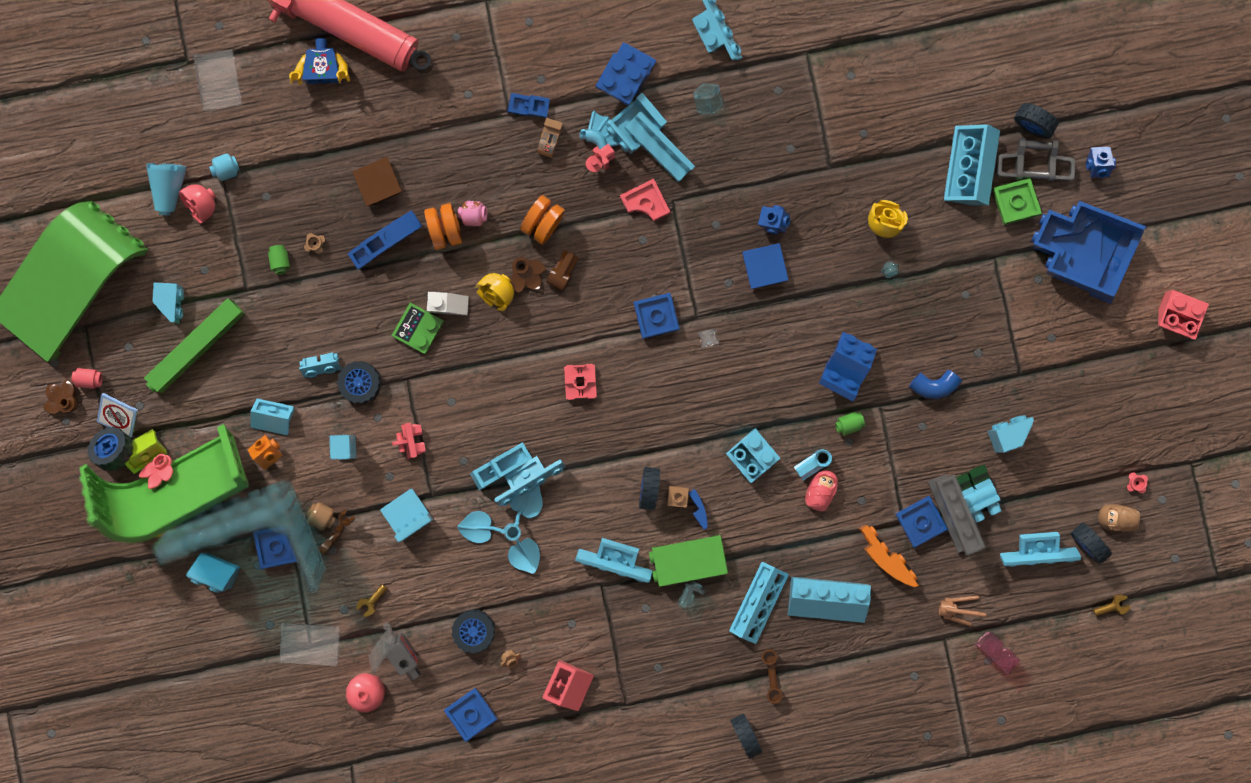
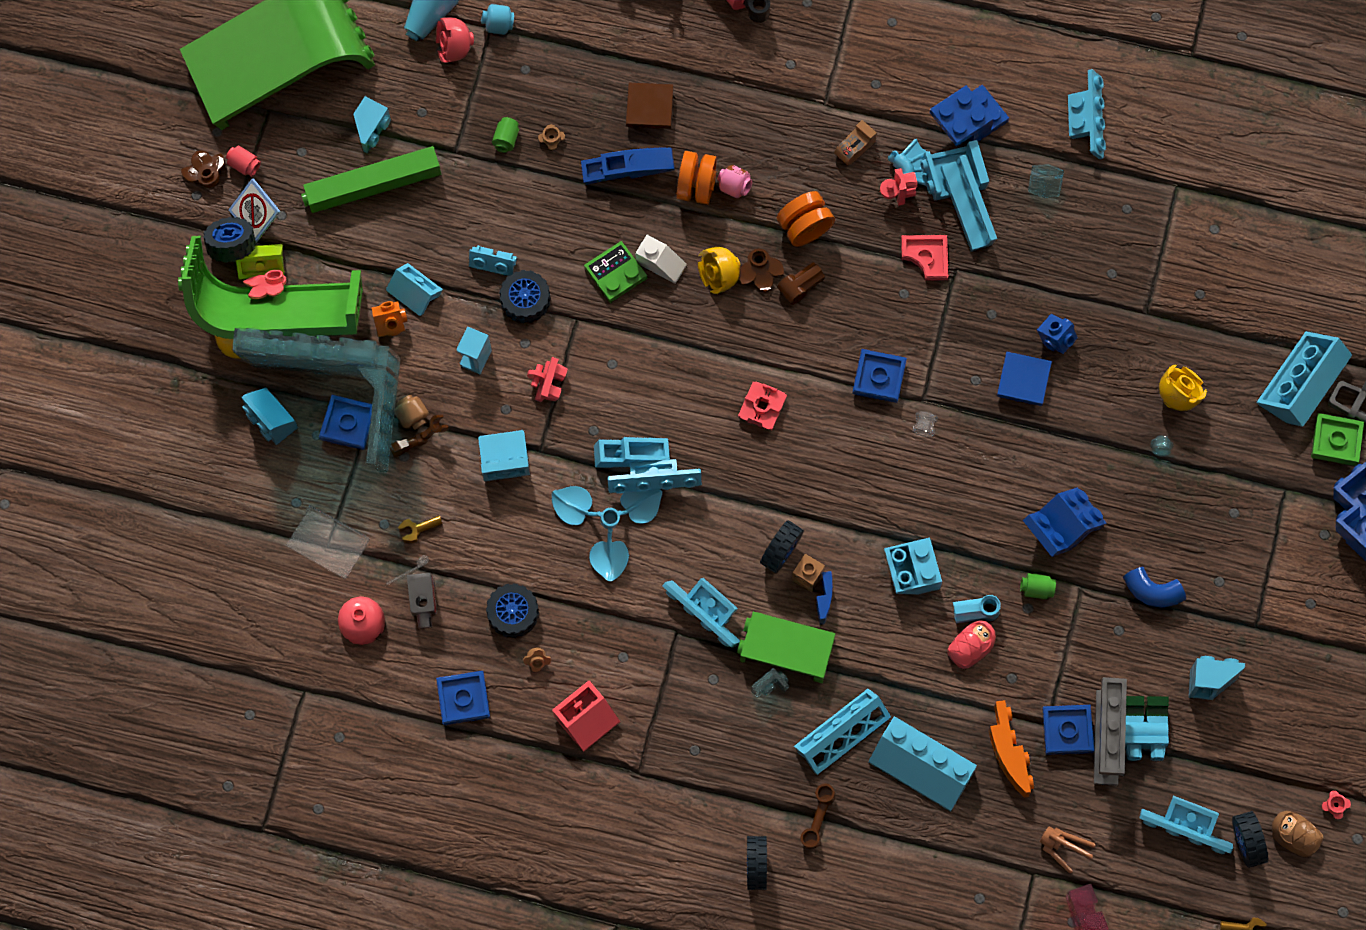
camera: 30 degrees right, 15 degrees down
(528, 105) = (848, 103): blue slope -> none

